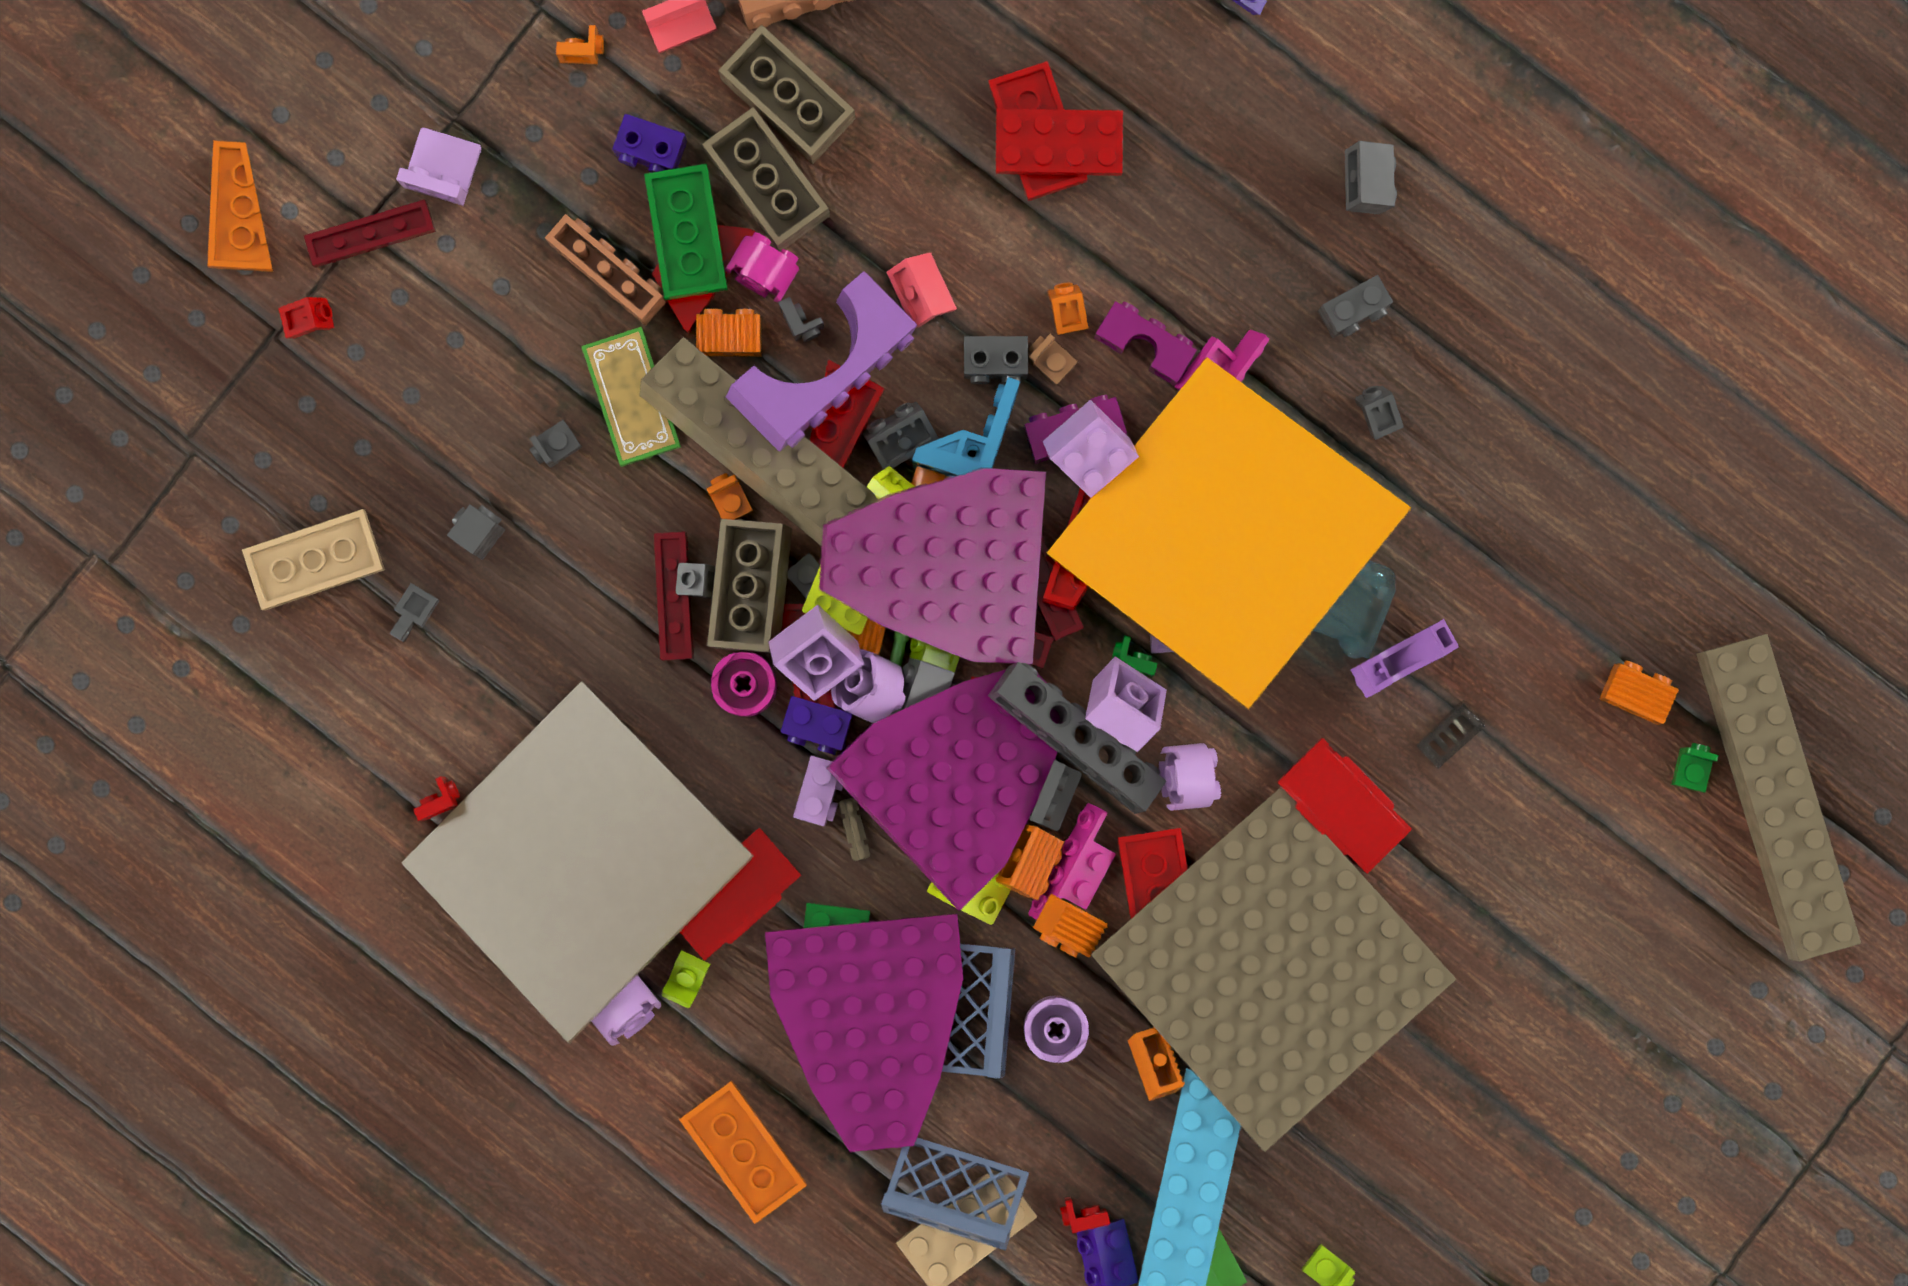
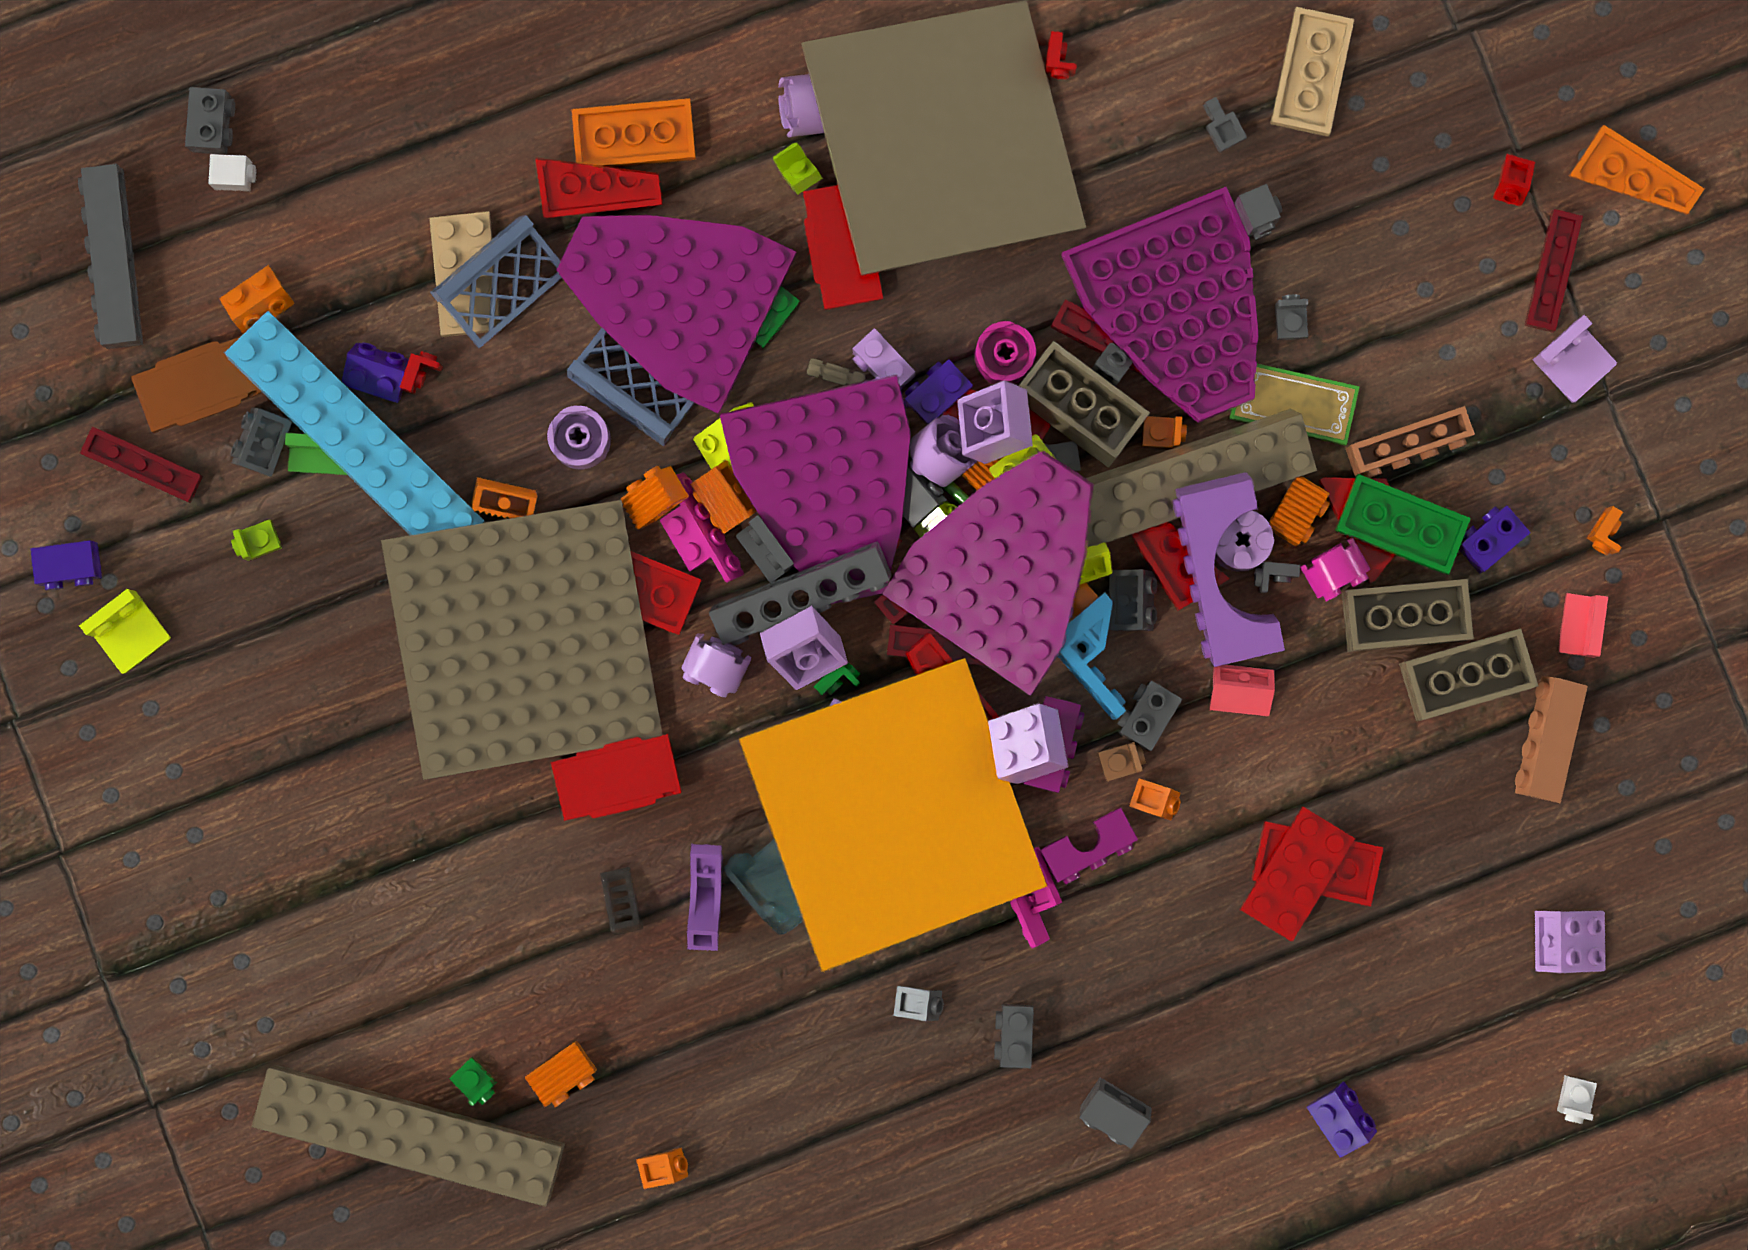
camera: 125 degrees right, 0 degrees up
(600, 555) = (1178, 301): none -> magenta wing
(788, 349) = (1258, 542): none -> lavender brick
(819, 1162) = (589, 188): none -> red wing
(1666, 551) = (663, 1168): none -> orange bracket

